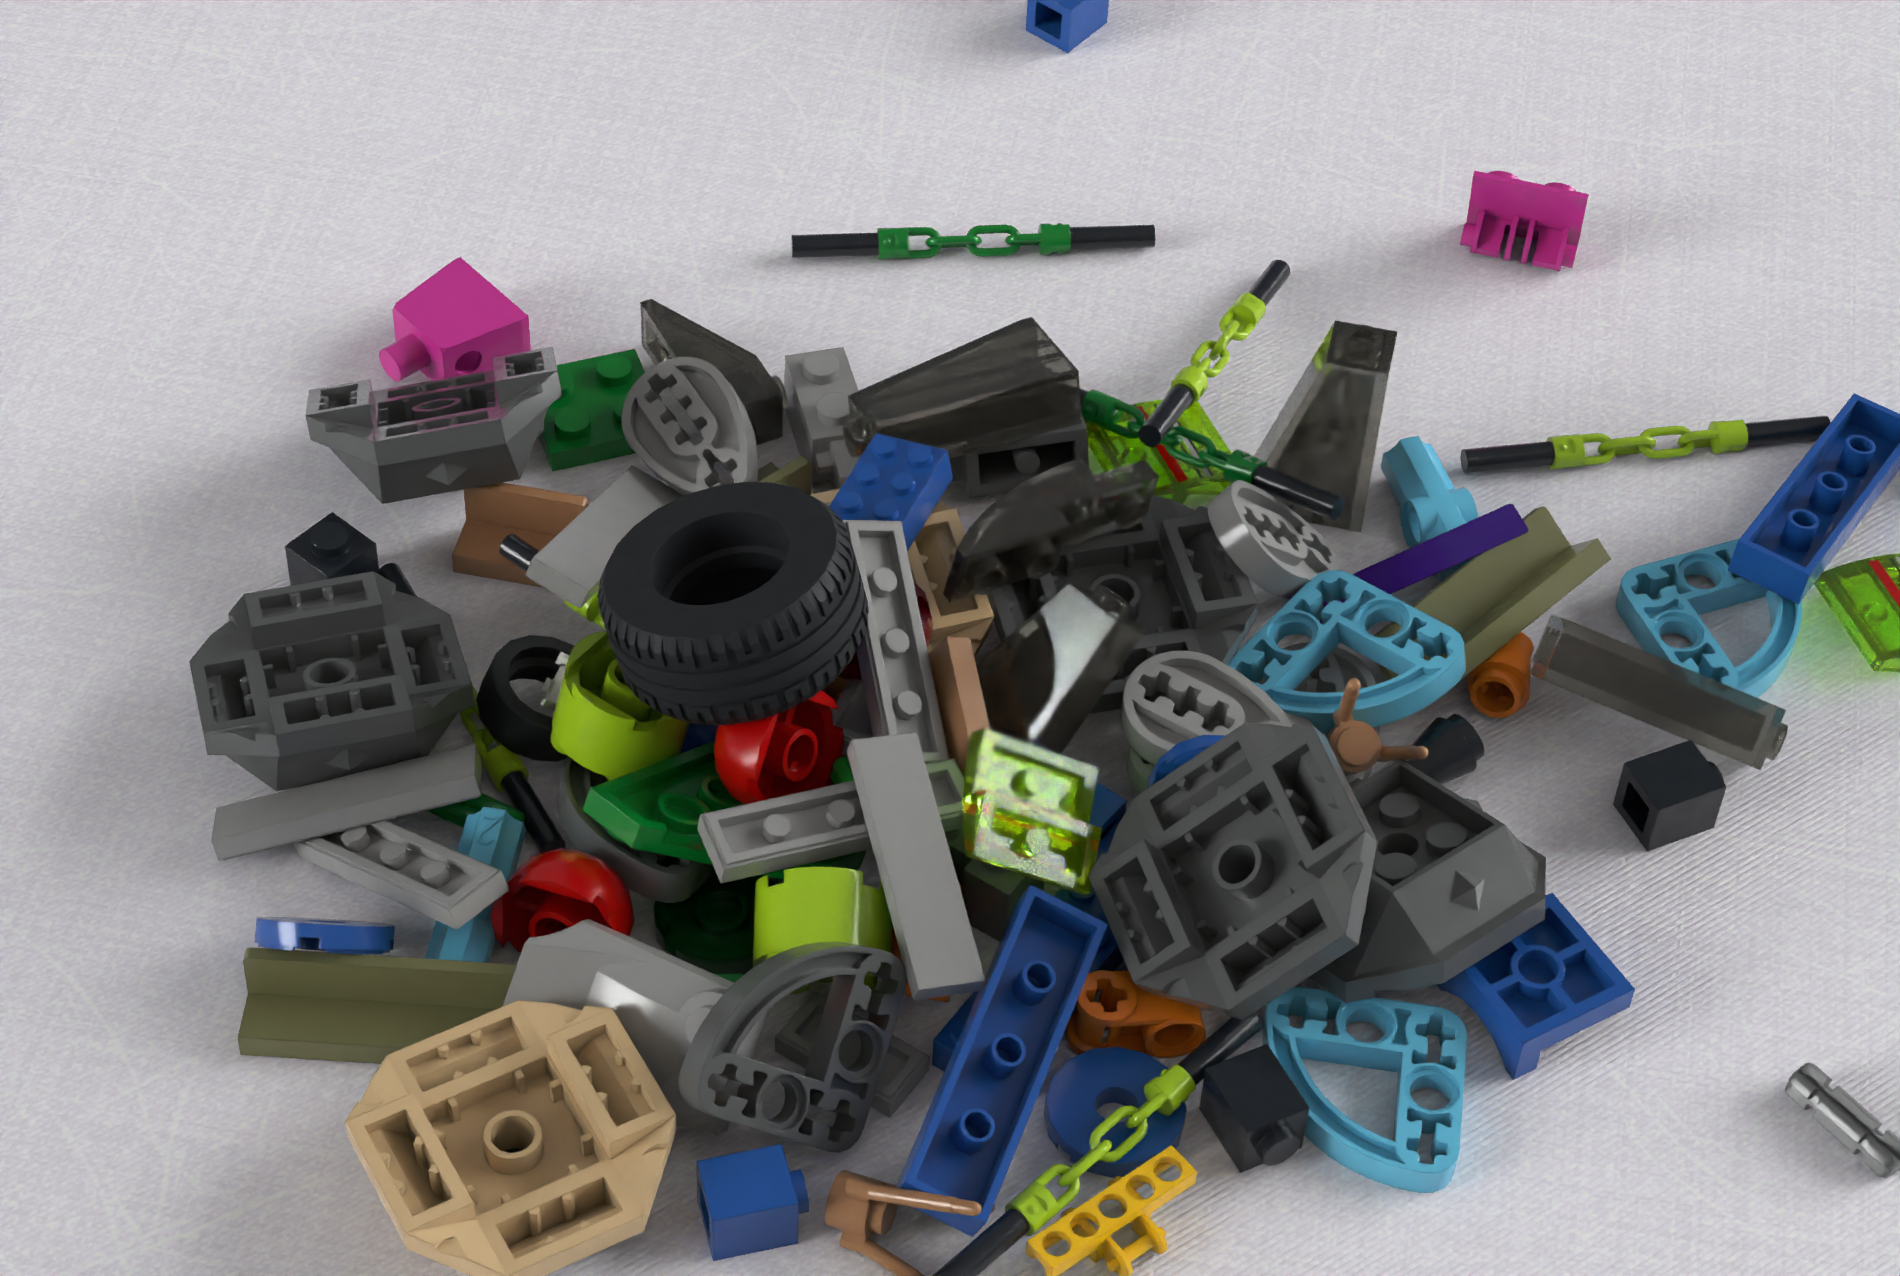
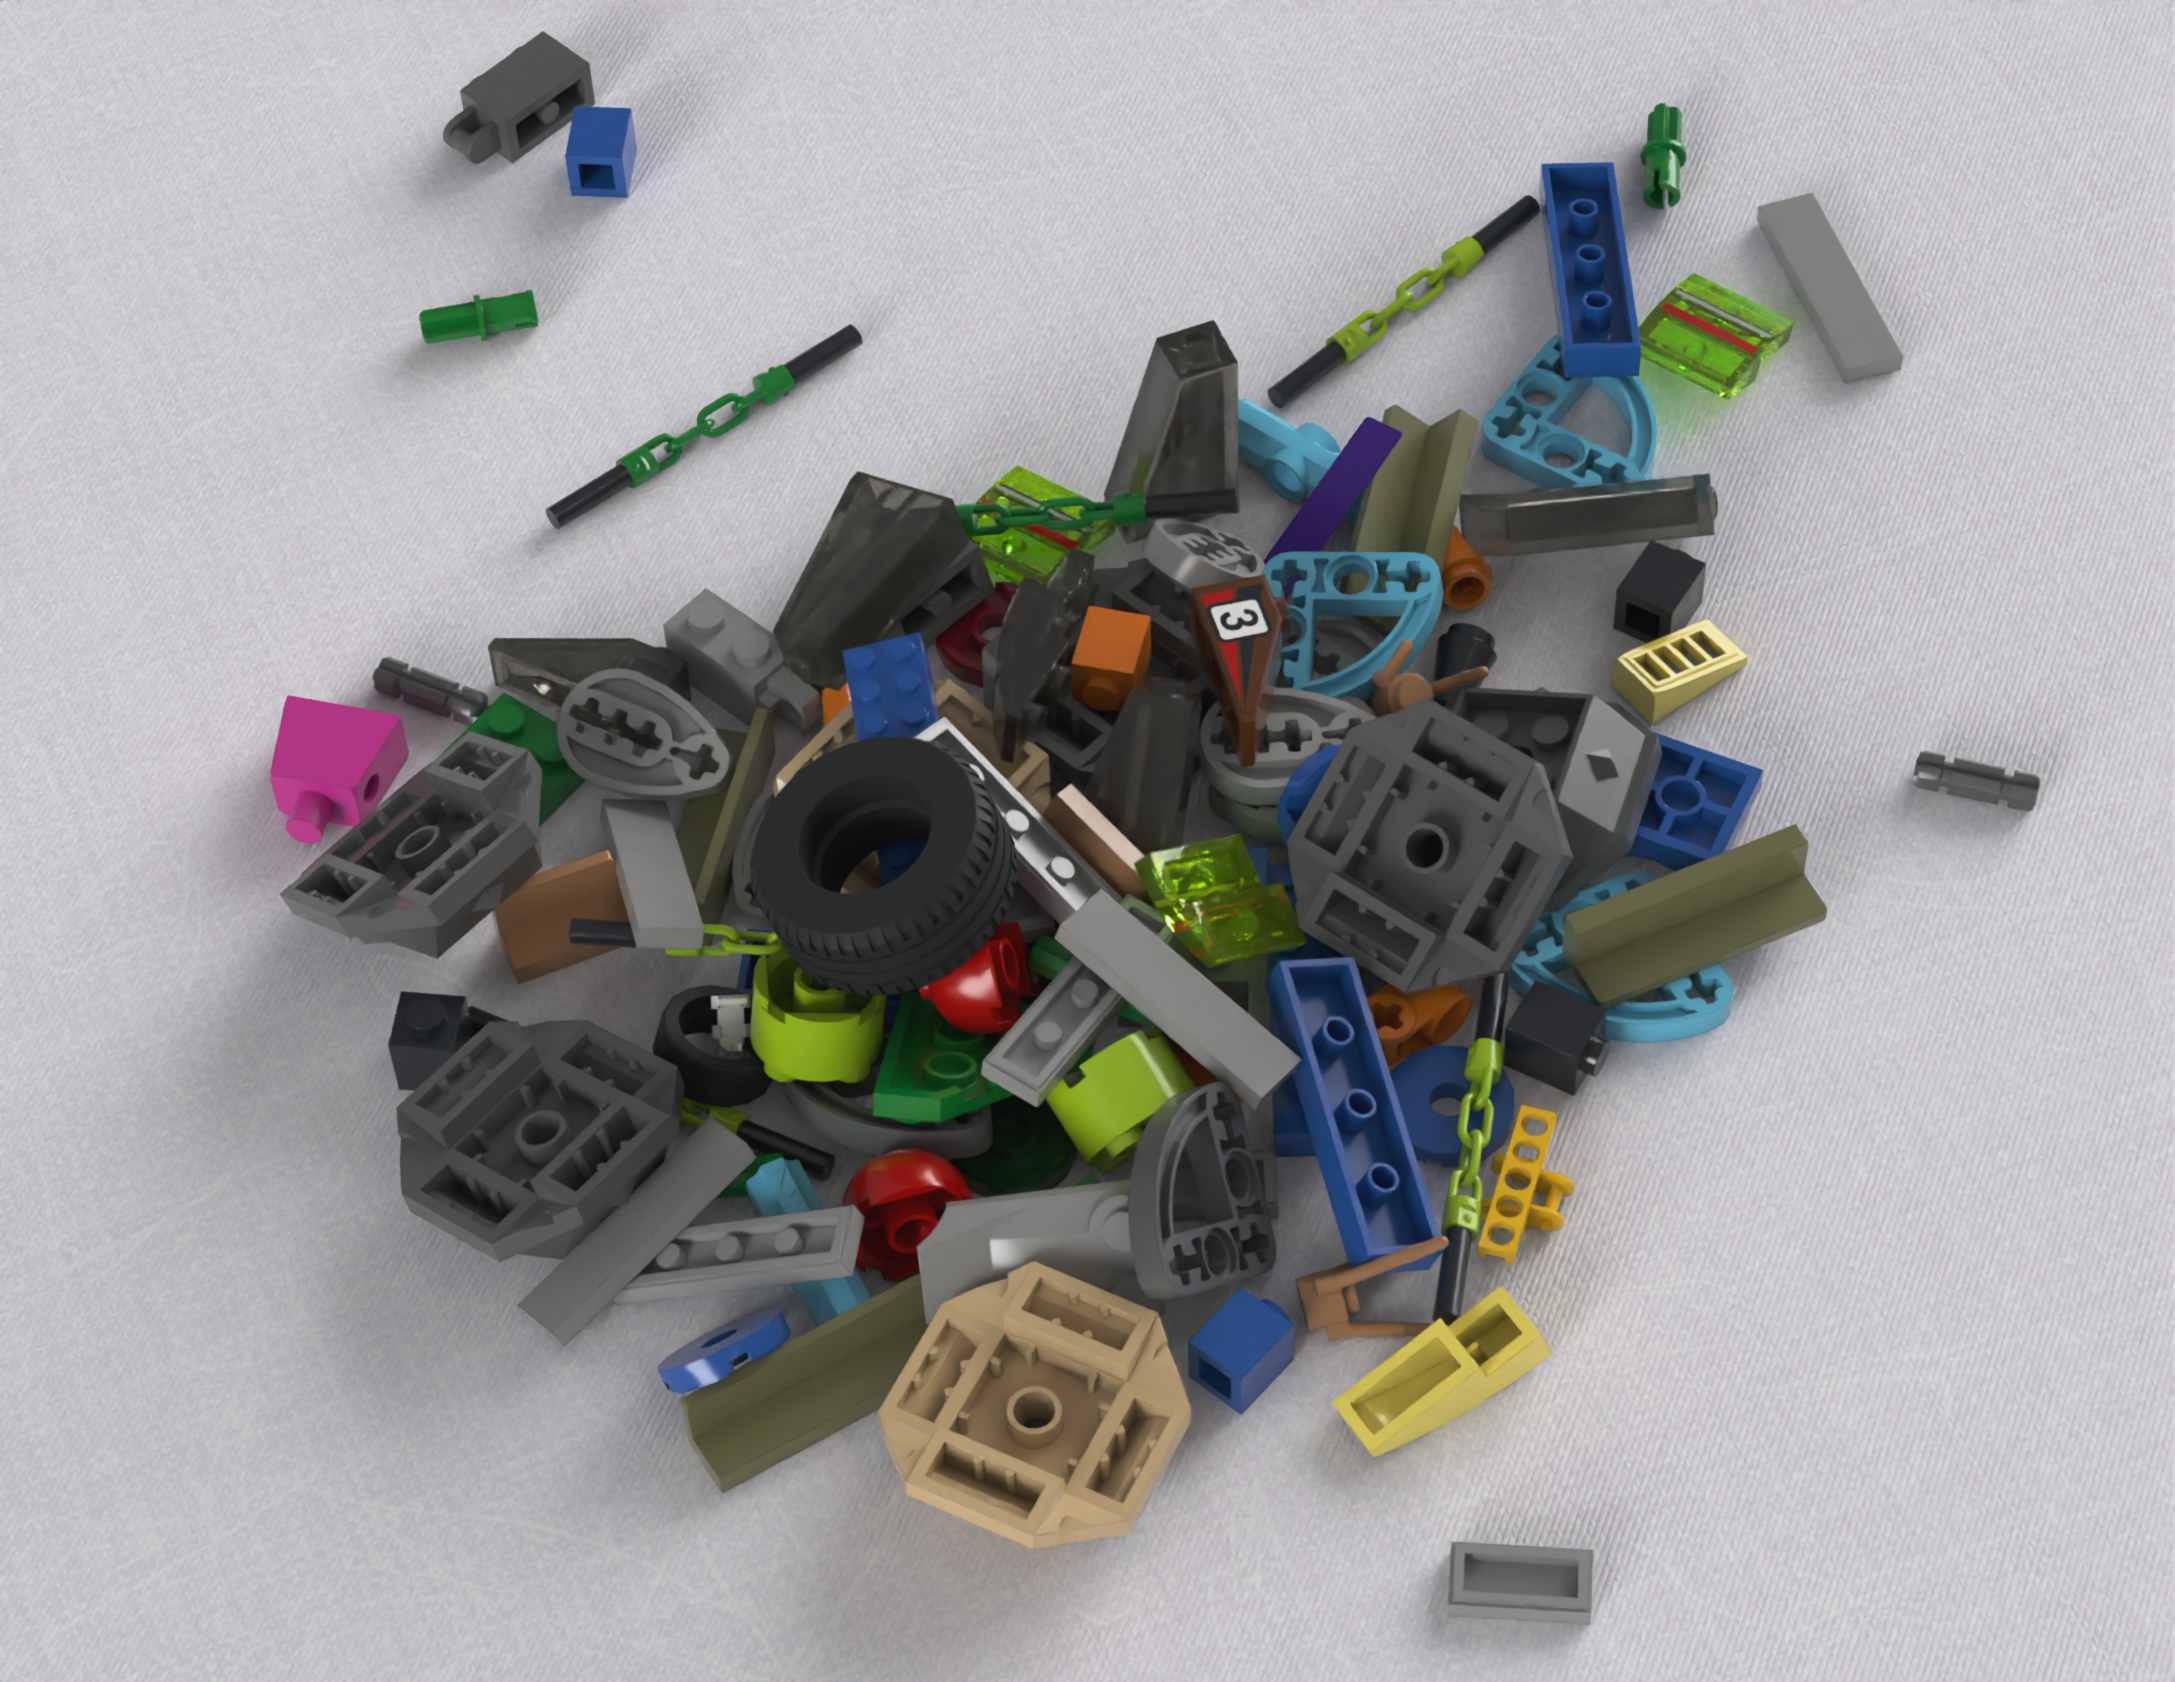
camera: 30 degrees left, 5 degrees up
(581, 317) = (429, 691): none -> dark grey axle
(870, 76) = (479, 317): none -> green axle
(1117, 558) = (1110, 657): none -> orange brick
(1192, 380) = (1003, 378): piece -> none
(1216, 624) = (1240, 645): none -> reddish brown slope
(1463, 1077) = (1692, 918): none -> olive panel
(1526, 210) = (1173, 140): dark pink hinge -> none
(1617, 882) = (1659, 698): none -> light yellow slope

